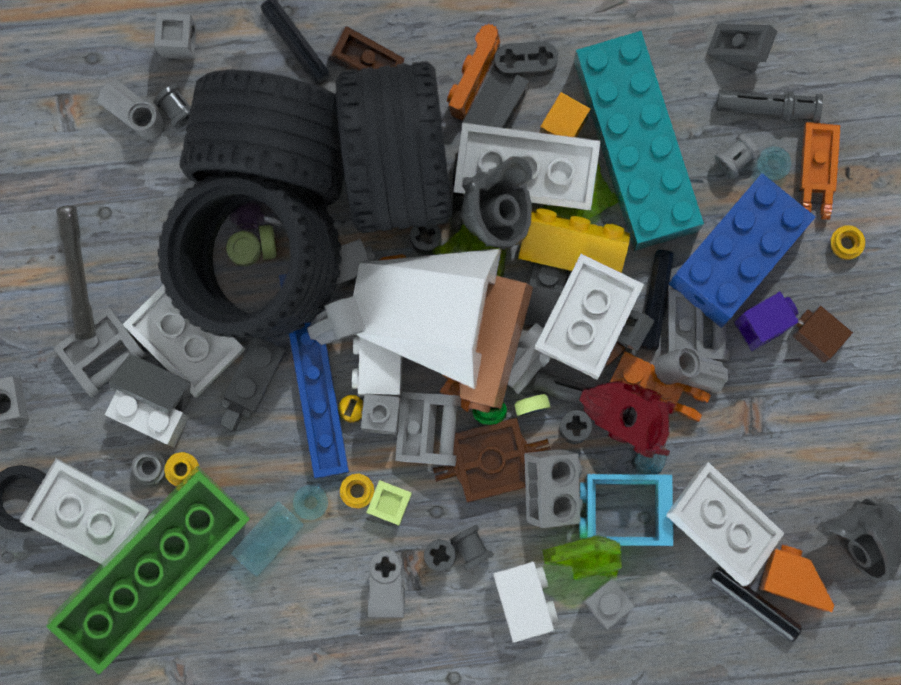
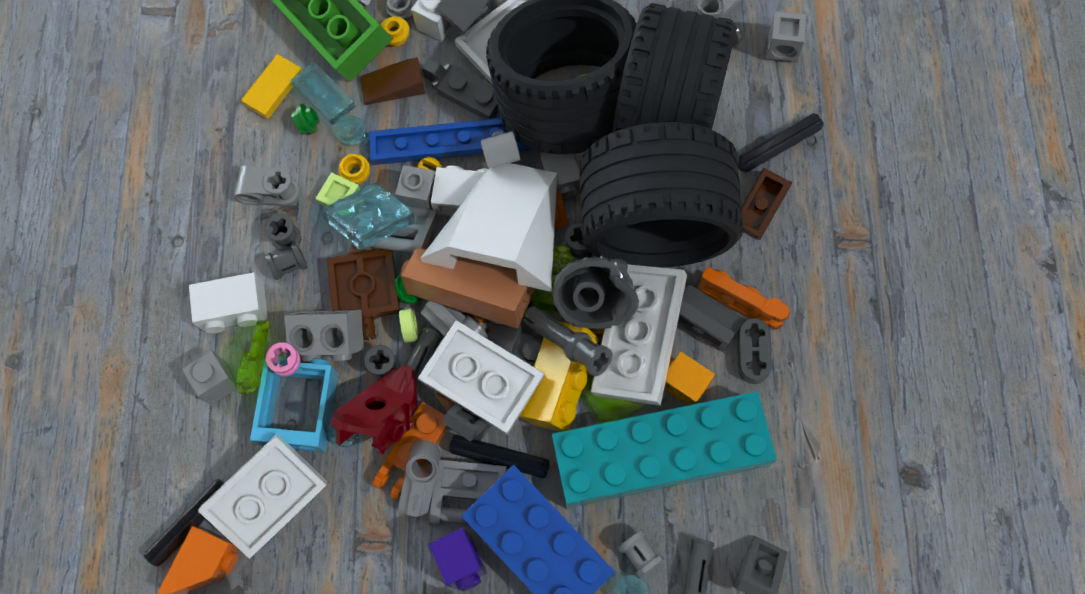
camera: 95 degrees right, 10 degrees down
(247, 463) = (393, 82): none -> reddish brown slope
(259, 601) = (271, 87): none -> yellow tile
(302, 553) = (305, 119): none -> green plate
(420, 459) = (368, 216): none -> clear light blue plate
(553, 221) = (576, 346): none -> dark grey pin
(589, 510) = (293, 360): none -> bright pink bush

